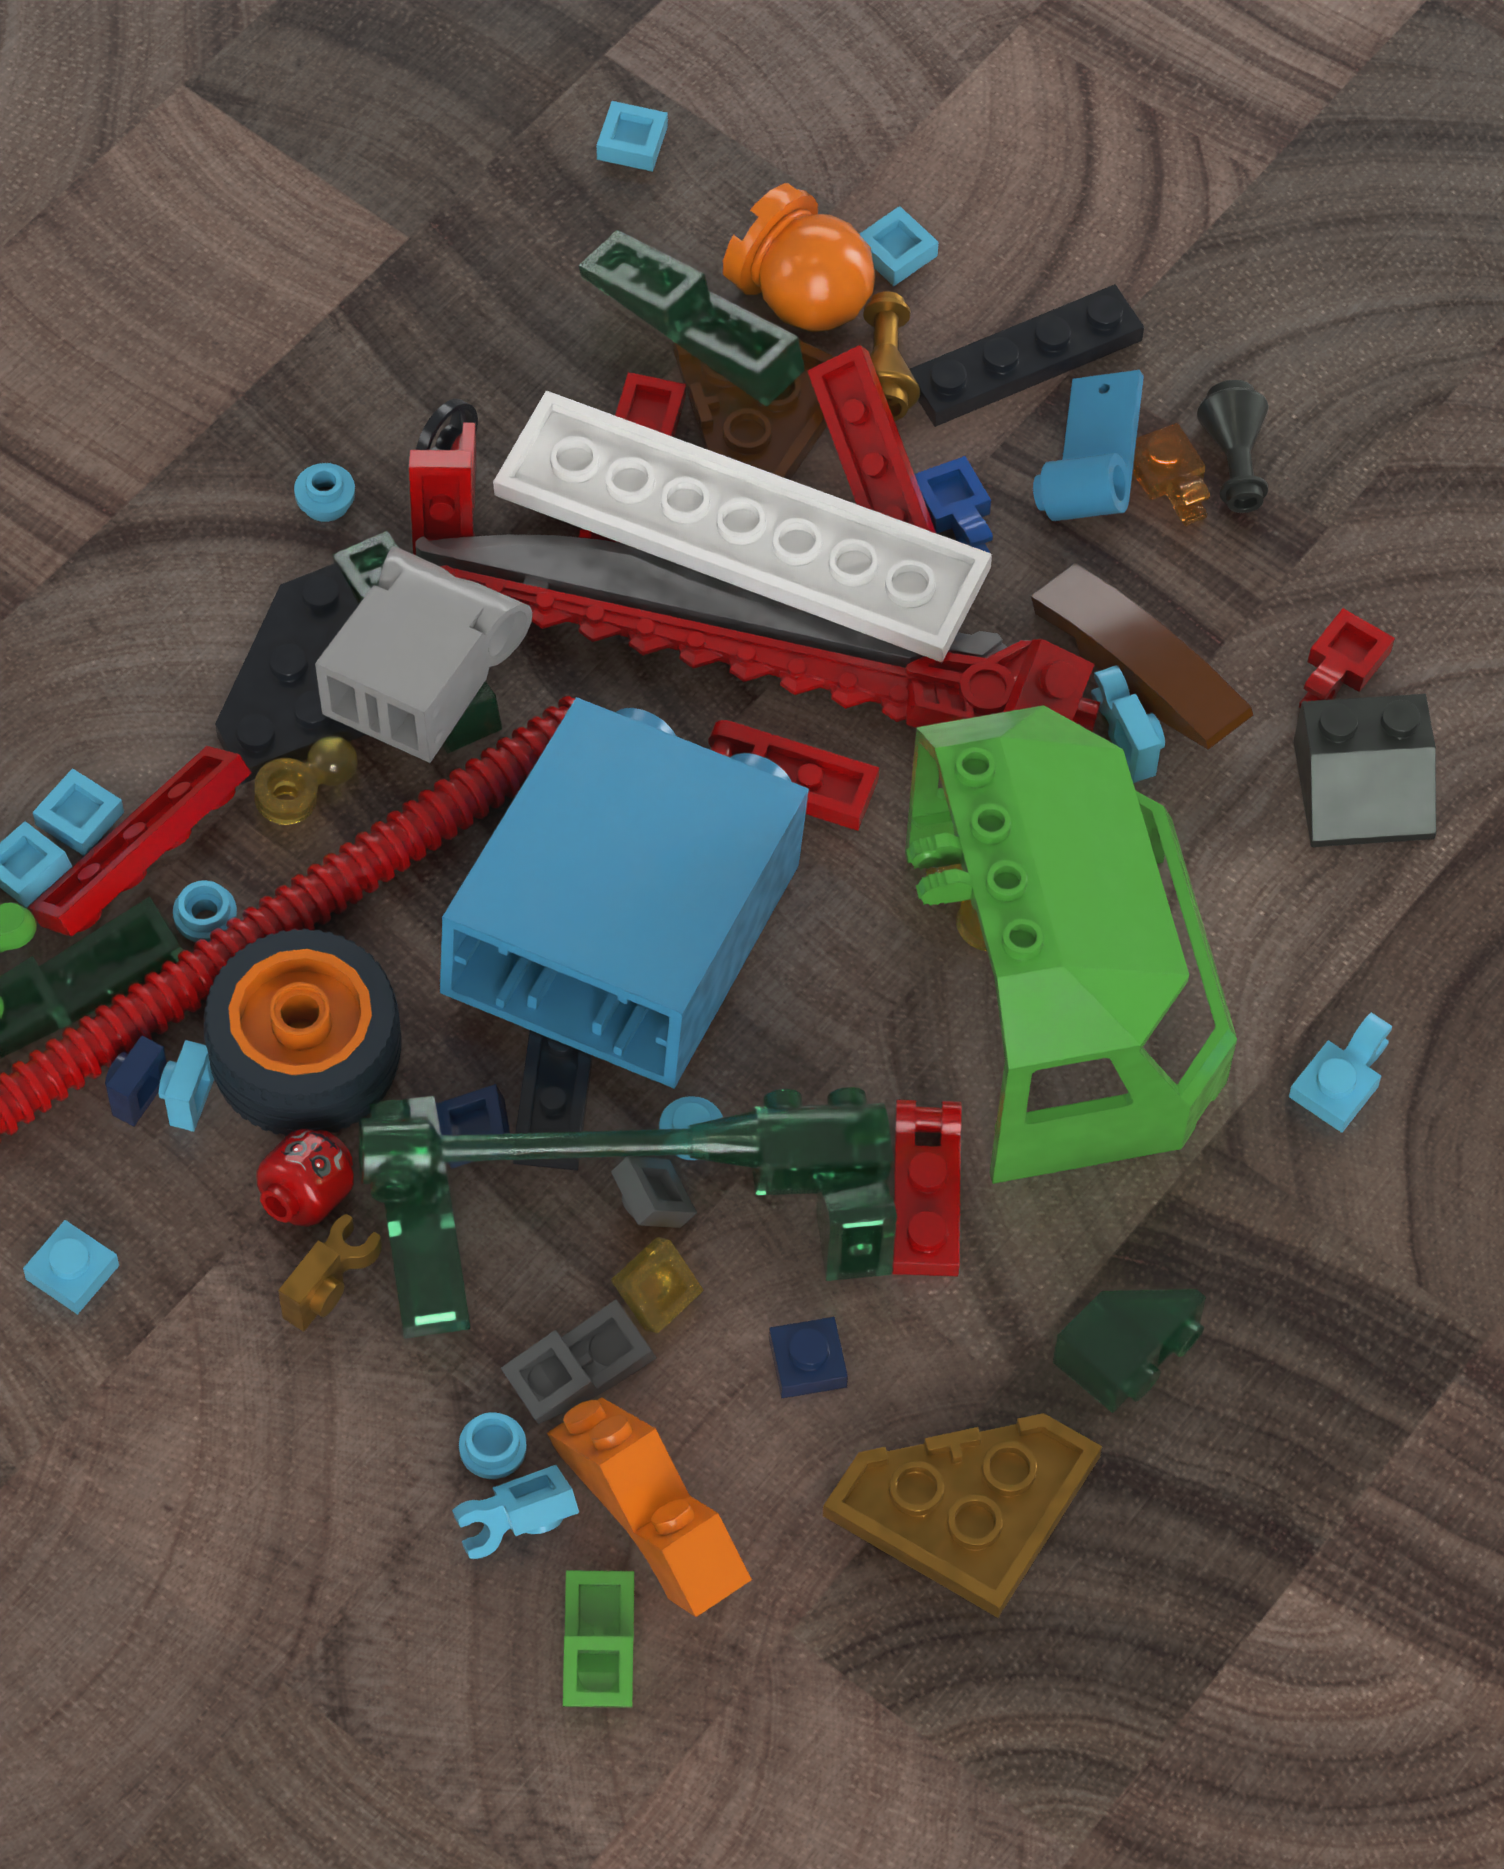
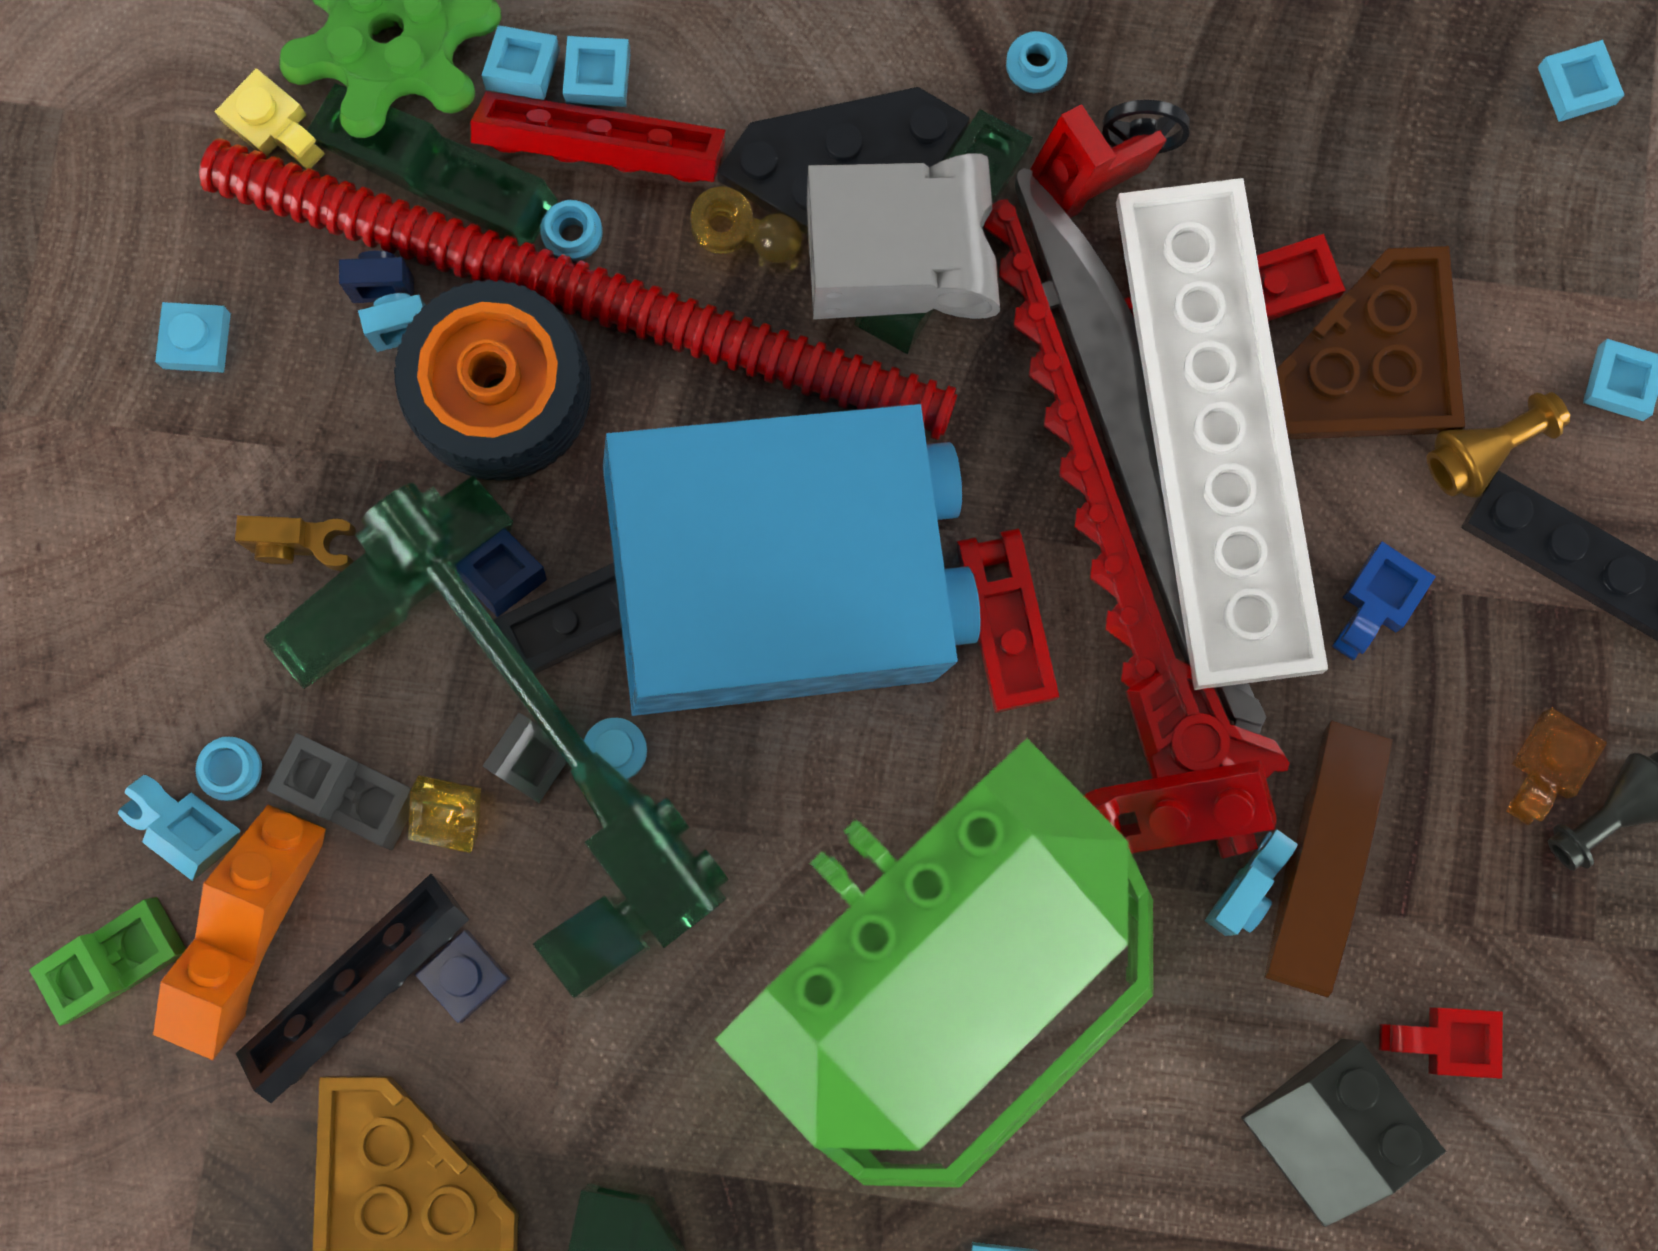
camera: 60 degrees right, 20 degrees up
(305, 1177) = (366, 465): red head -> none
(678, 304) = (1415, 259): clear green slope -> none
(760, 1442) = (351, 988): none -> black plate
(804, 262) = (1539, 314): orange tile -> none
(868, 438) = (1382, 492): red plate -> none
(927, 1190) = (679, 982): red plate -> none
(1097, 450) = (1526, 689): dark azure door -> none

